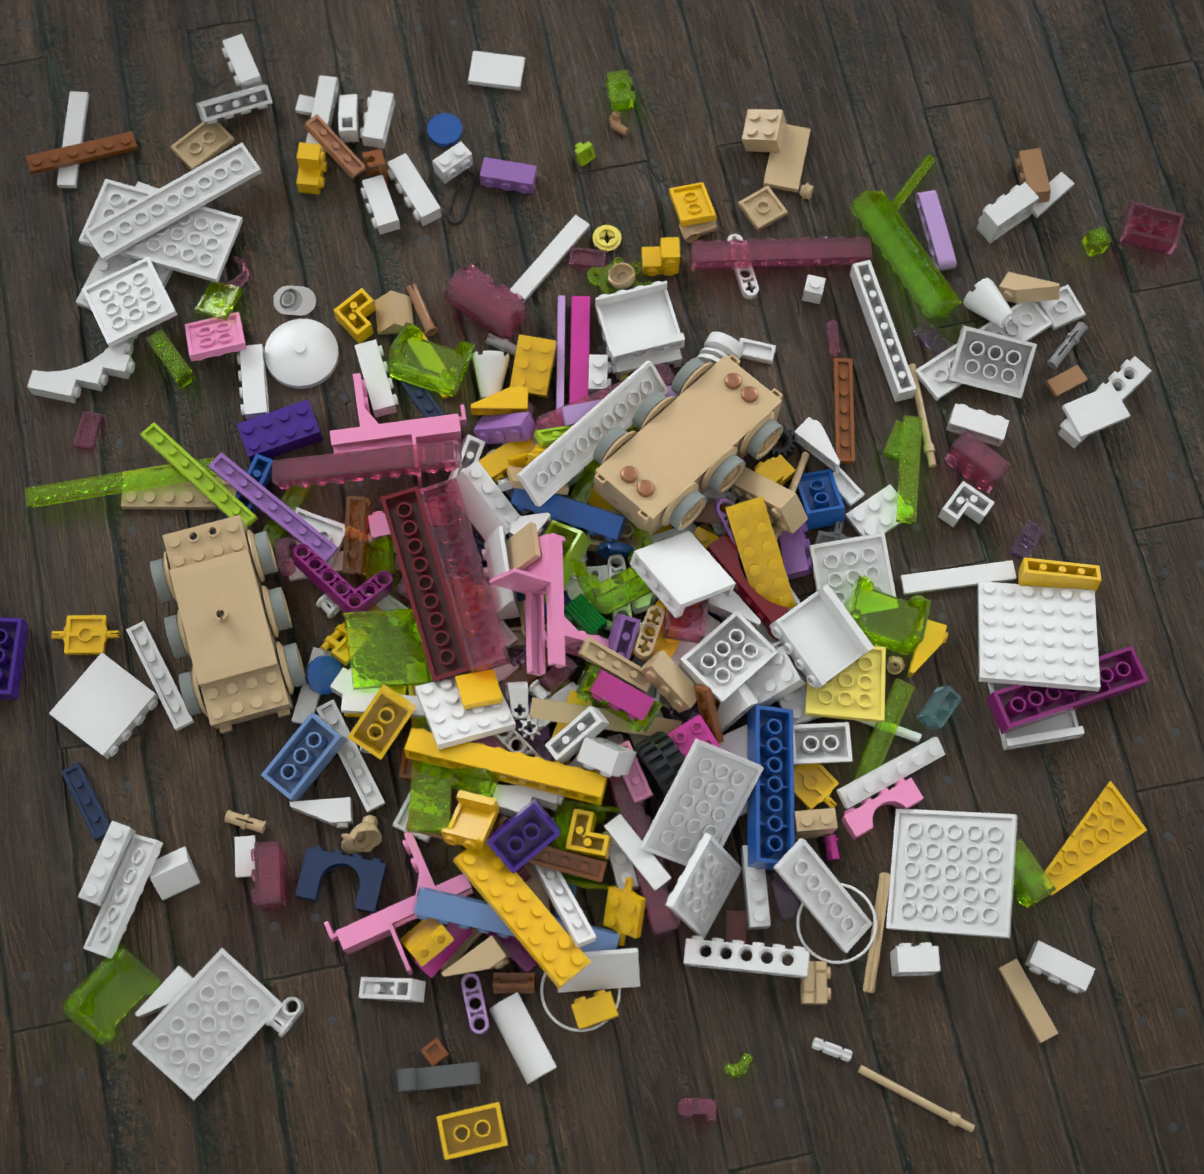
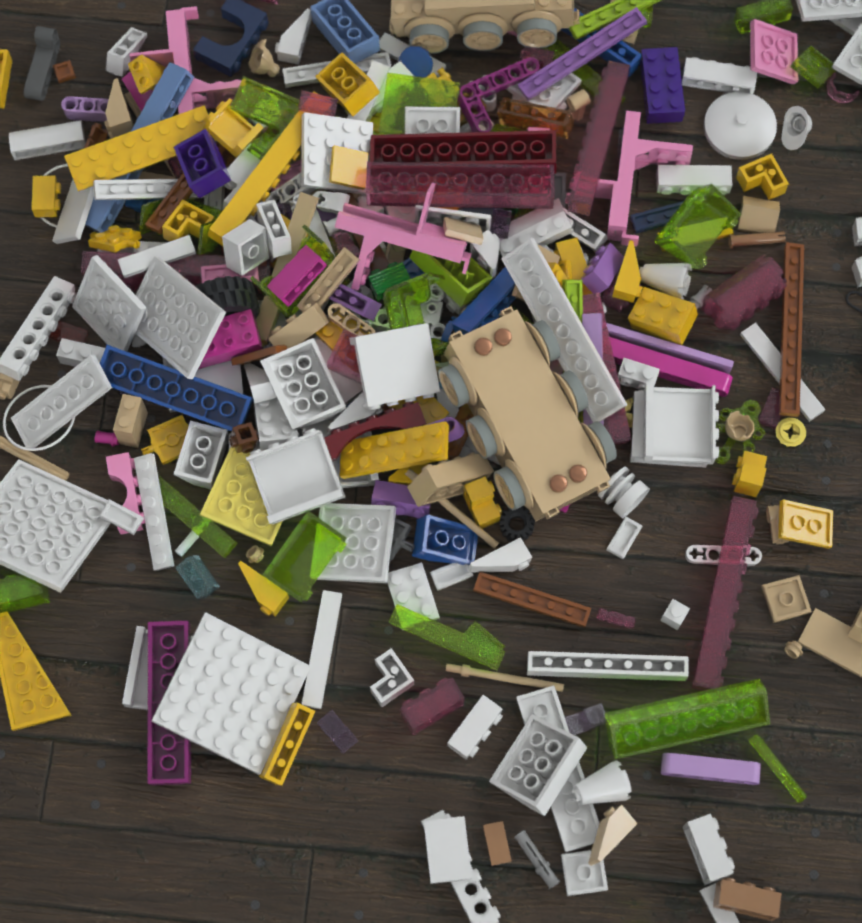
camera: 110 degrees right, 0 degrees up
(327, 500) = (577, 104): none -> tan piece
(398, 629) = (432, 120): none -> white tile
(420, 738) = (317, 104): none -> clear pink tile
(483, 531) = (501, 223): none -> clear purple slope
(509, 256) = (791, 330): none -> dark orange plate
(799, 698) = (243, 438): none -> reddish brown brick
(912, 797) = (121, 517): none -> white tile

